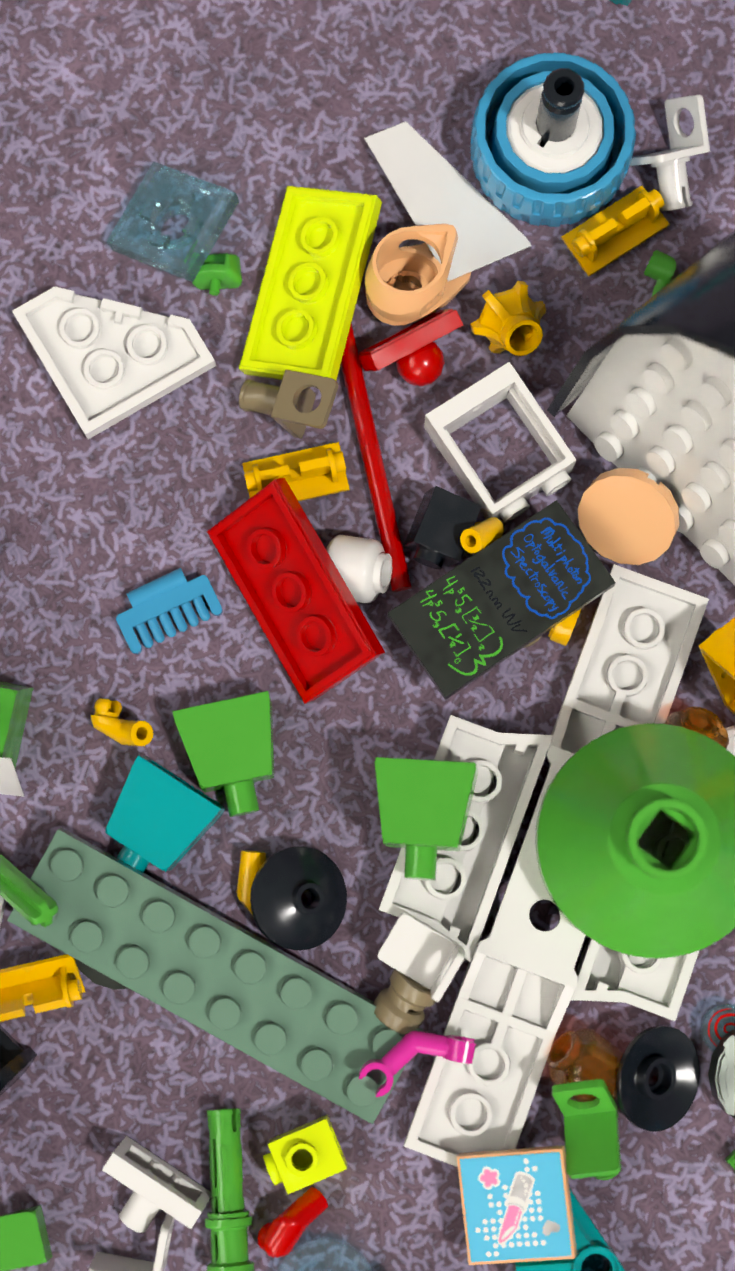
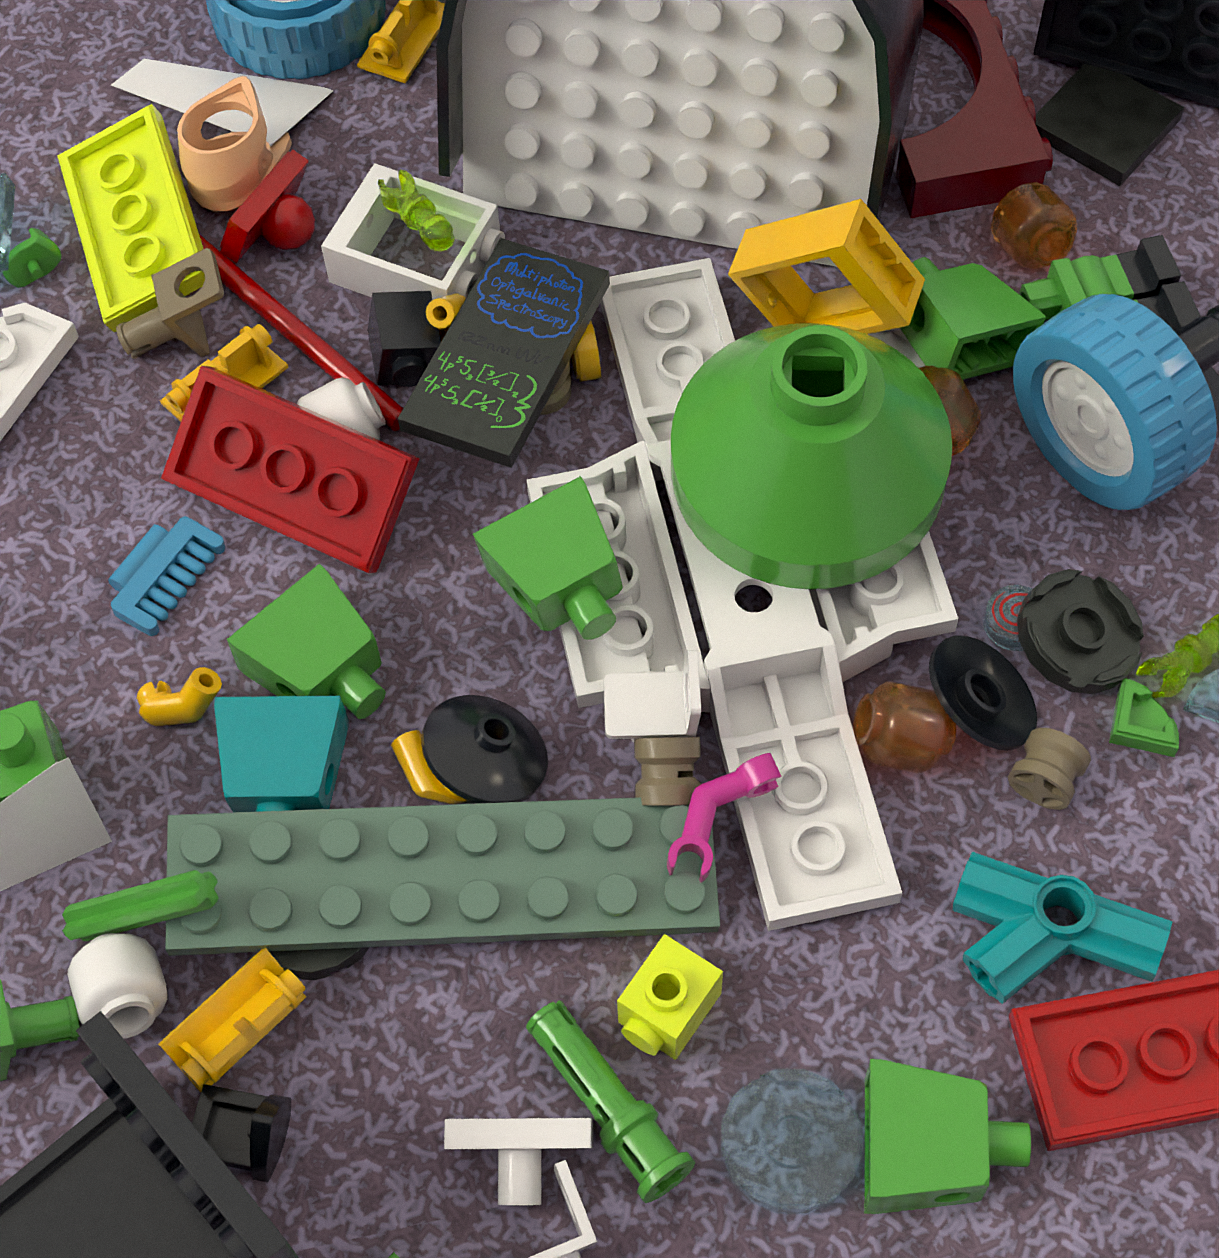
camera: 30 degrees left, 20 degrees down
(283, 1233) = (701, 1088): red arm -> none
(510, 437) = (417, 212): none -> clear neon green piece
(511, 321) = (353, 140): yellow rock -> none
(516, 1205) = (932, 892): medium azure tile -> none
(589, 1130) = (952, 770): bright green bracket -> none
(628, 516) = (584, 220): light nougat tile -> none
(663, 1160) = (1049, 768): none -> dark tan wheel

